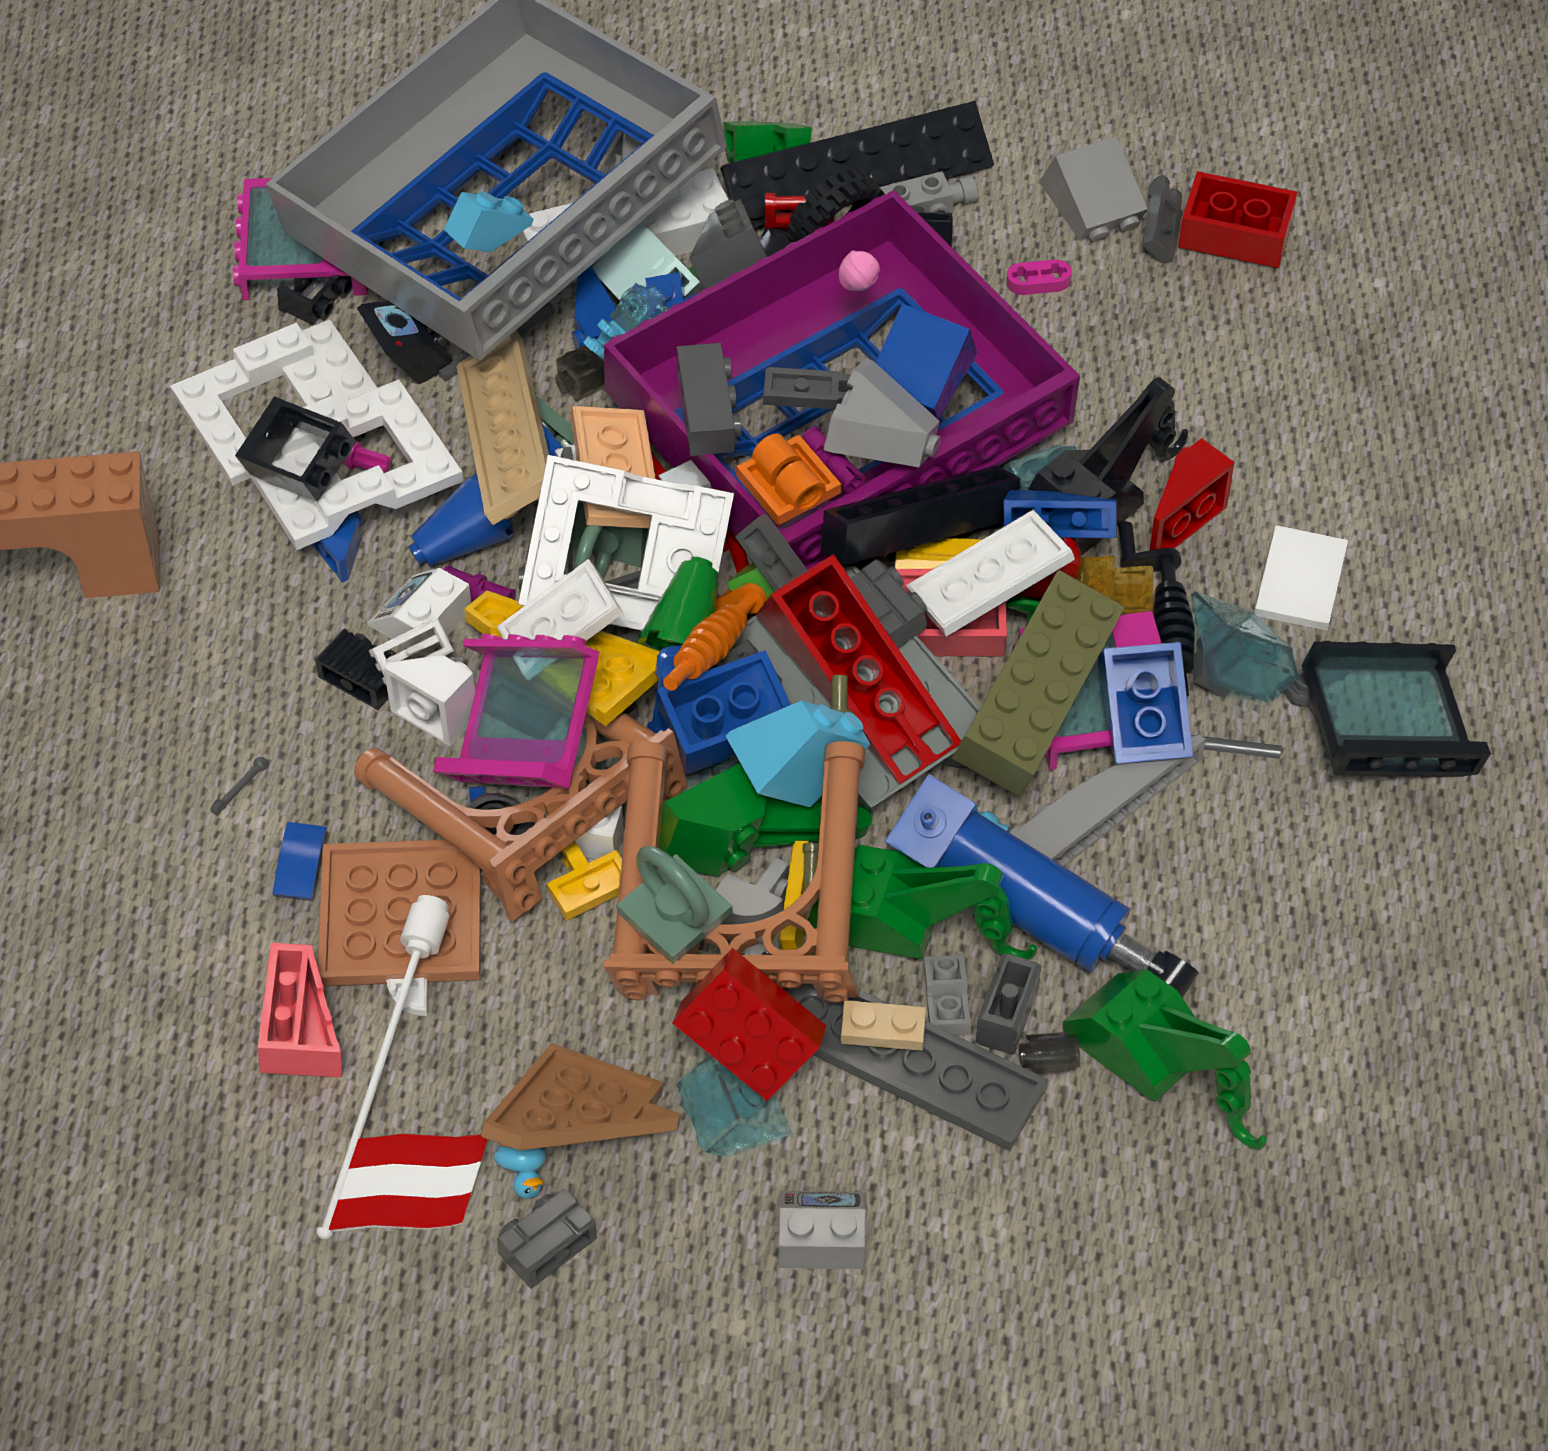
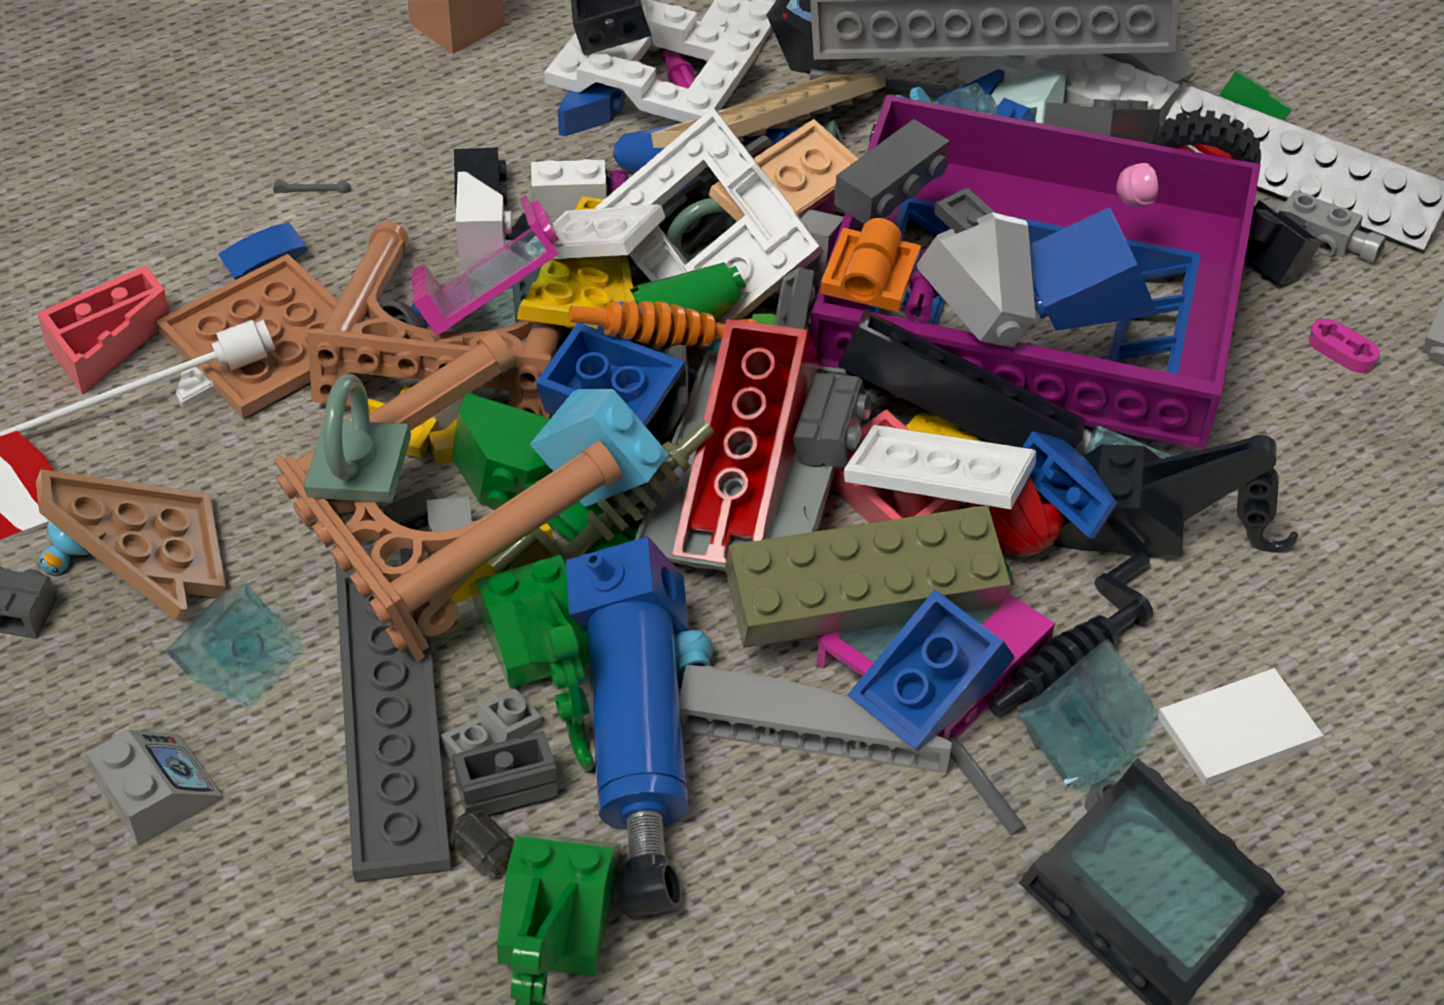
camera: 50 degrees right, 5 degrees down
(439, 636) = (541, 184): white tile -> none
(749, 1024) = (297, 589): red brick -> none
(883, 1025) = (400, 696): tan plate -> none
(1127, 585) = (1060, 587): clear yellow slope -> none
(1193, 494) = (1210, 574): red slope -> none

